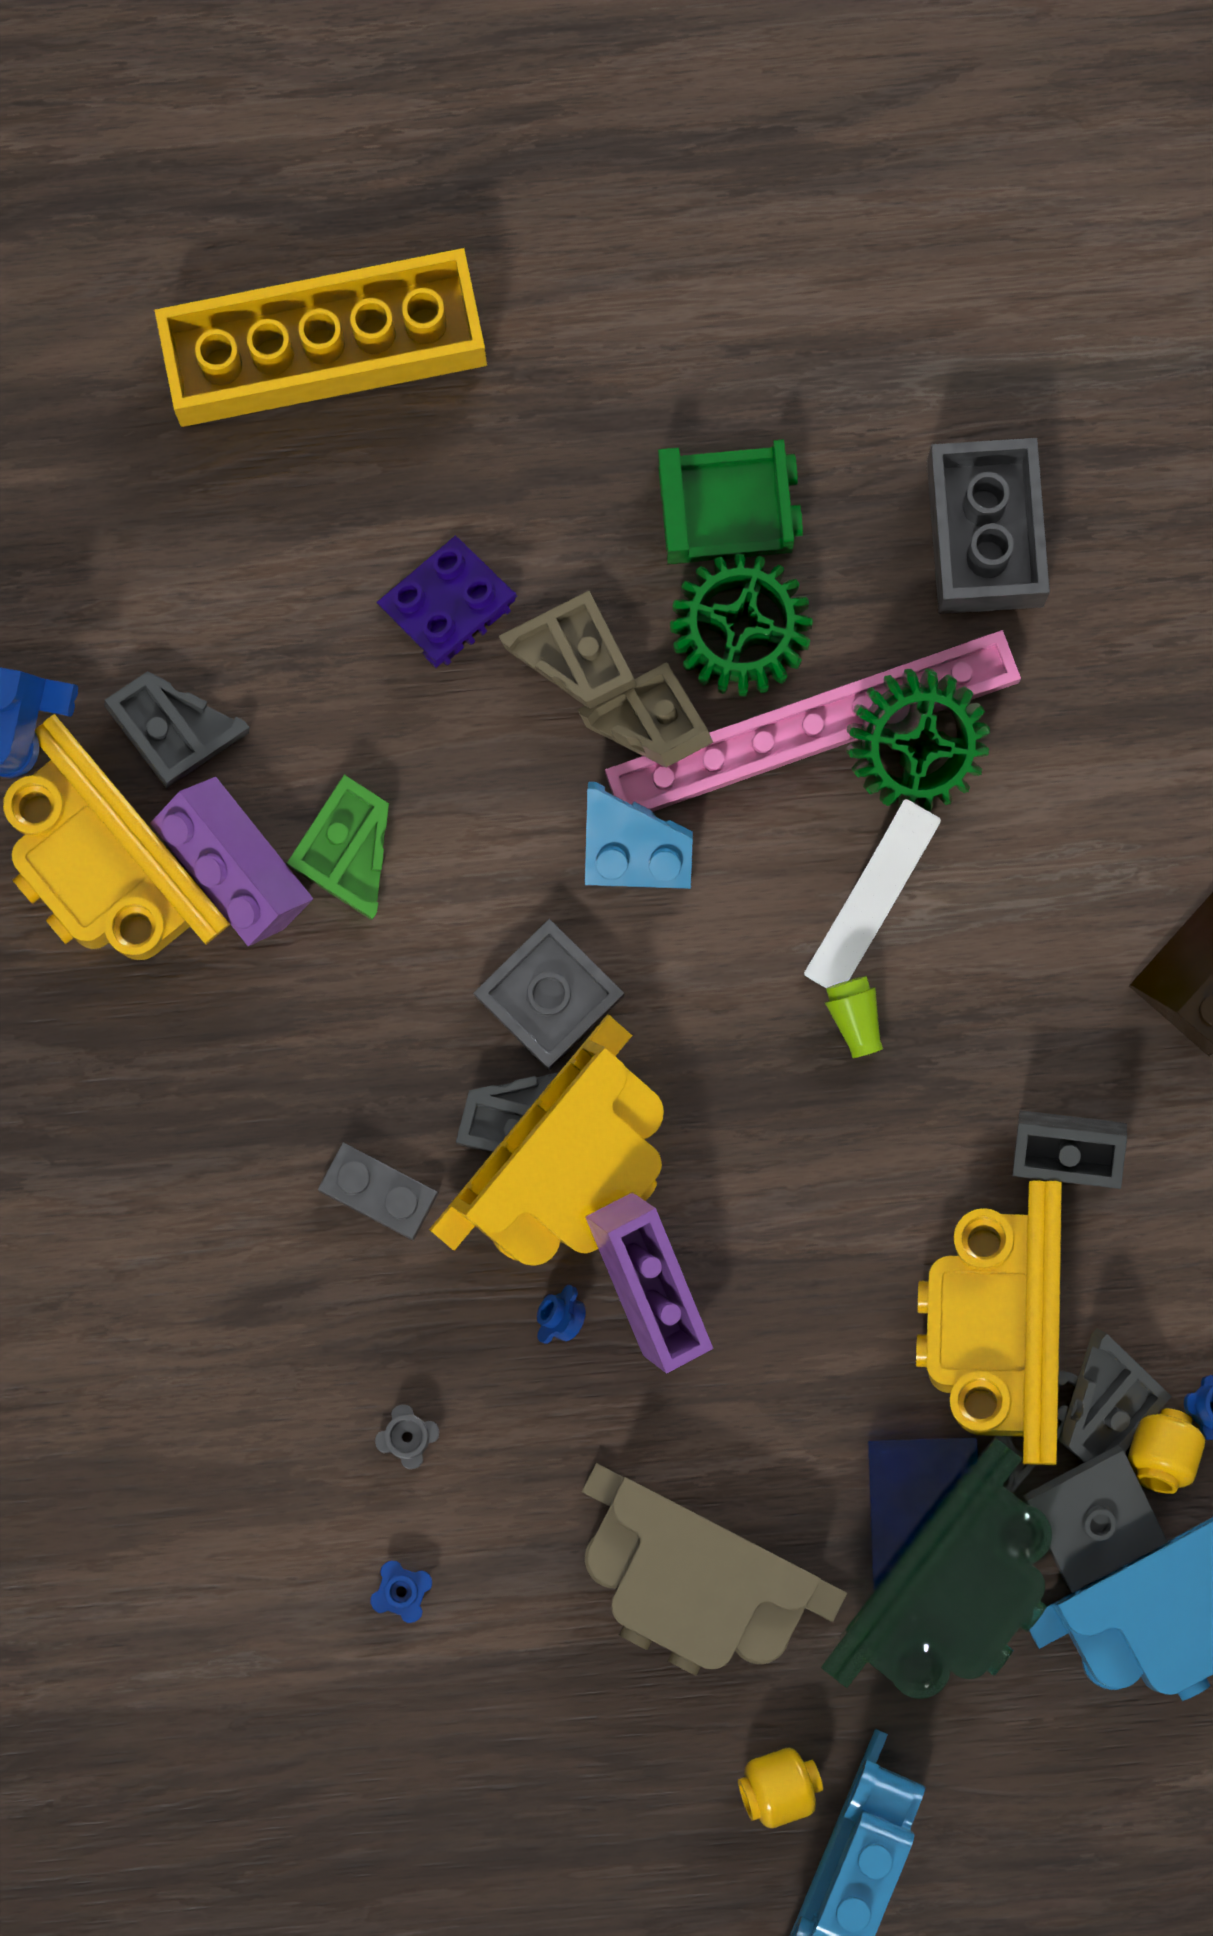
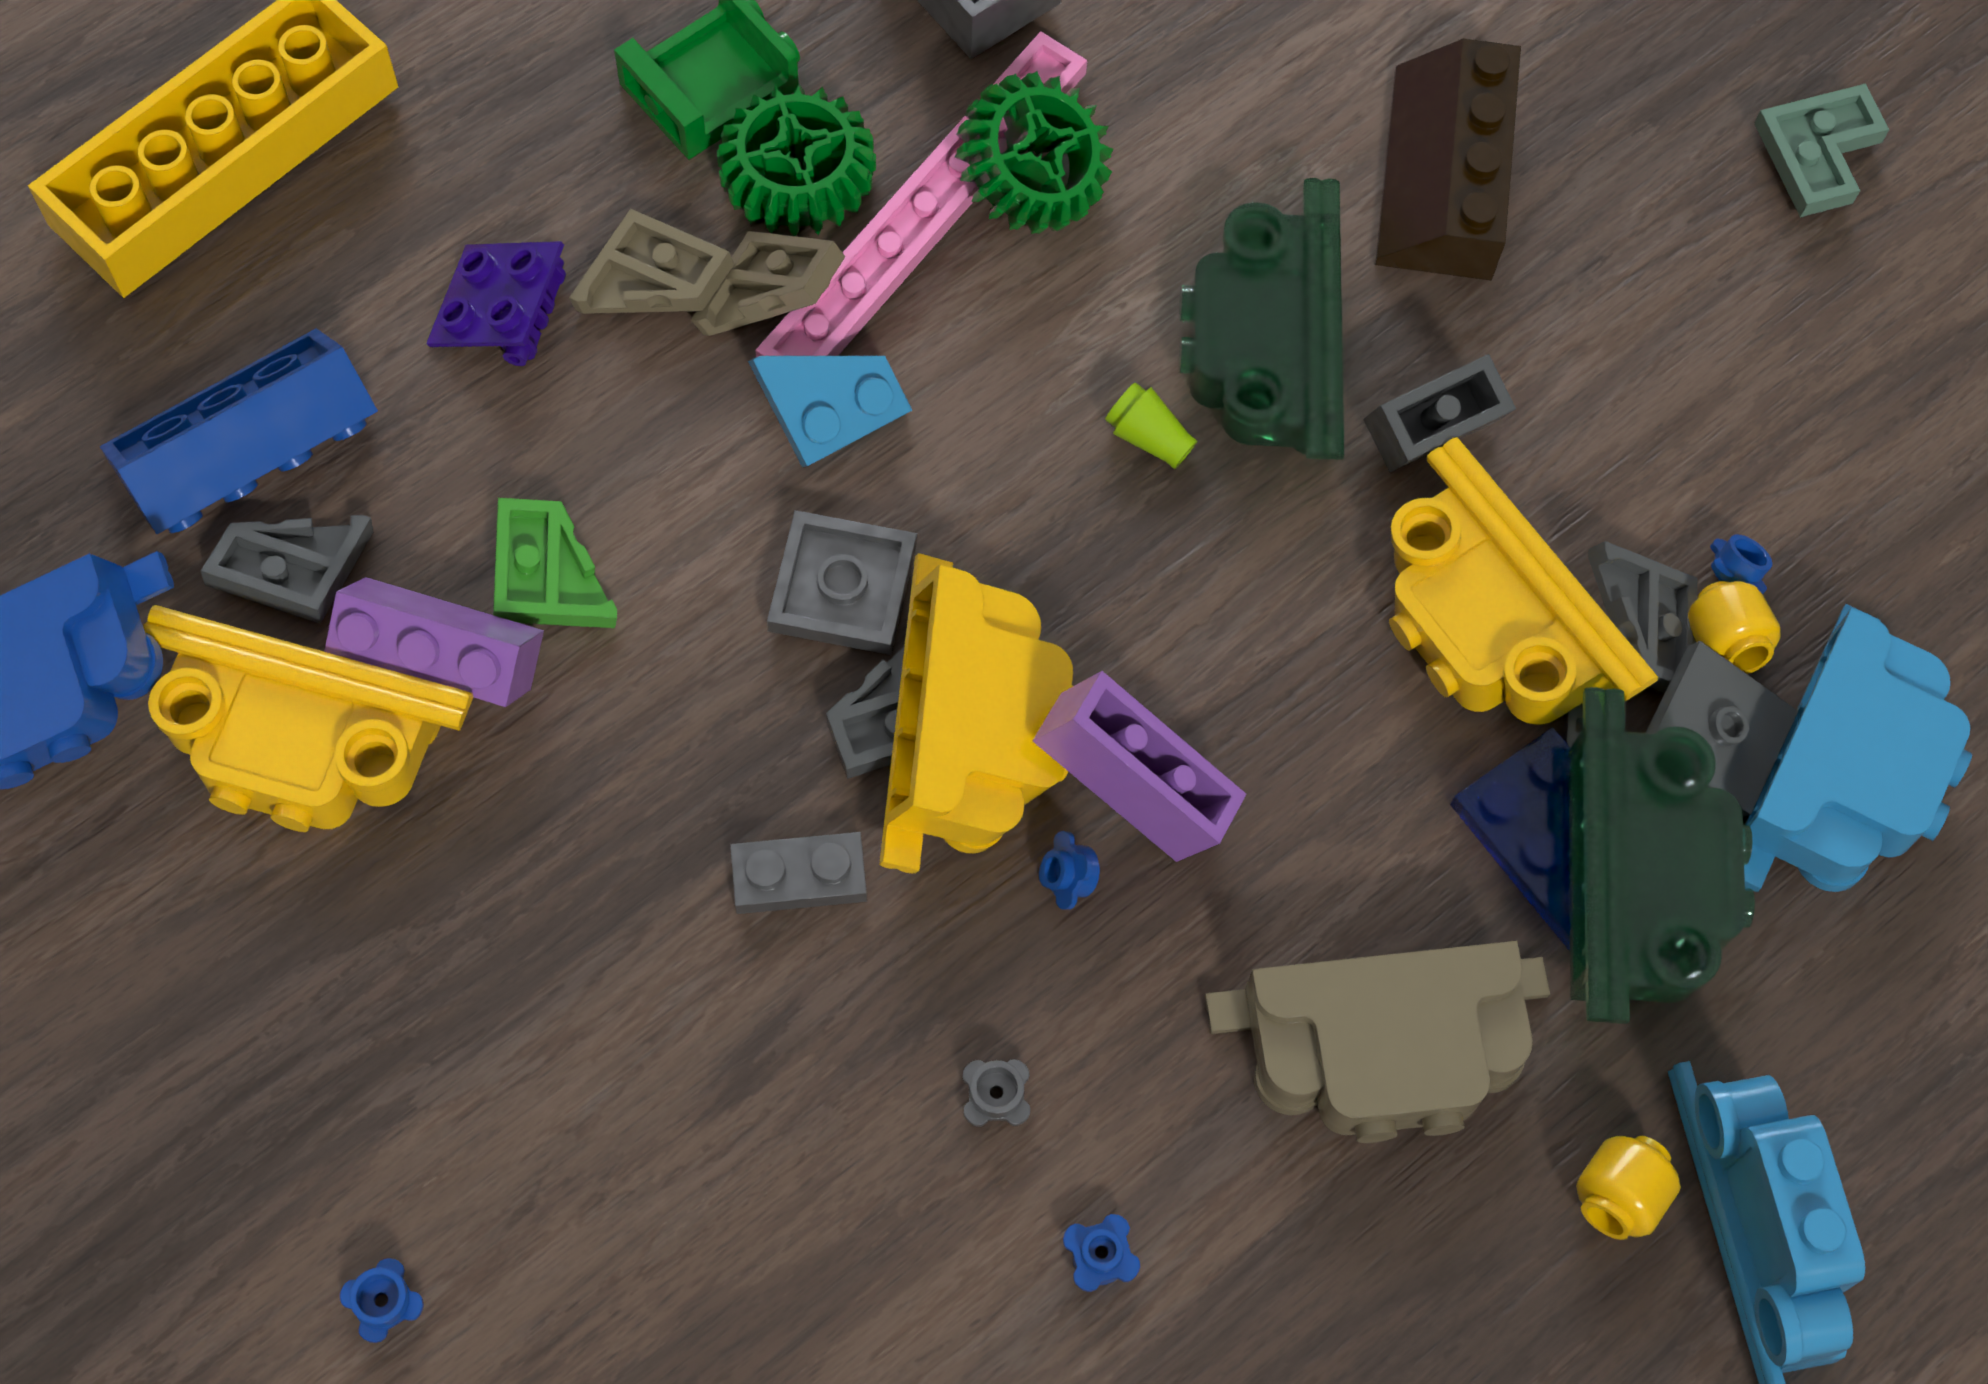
camera: 40 degrees left, 15 degrees down
(196, 595) = (240, 431): none -> blue slope
(873, 895) = (1087, 311): white sticker -> none
(1000, 996) = (1272, 326): none -> clear green brick

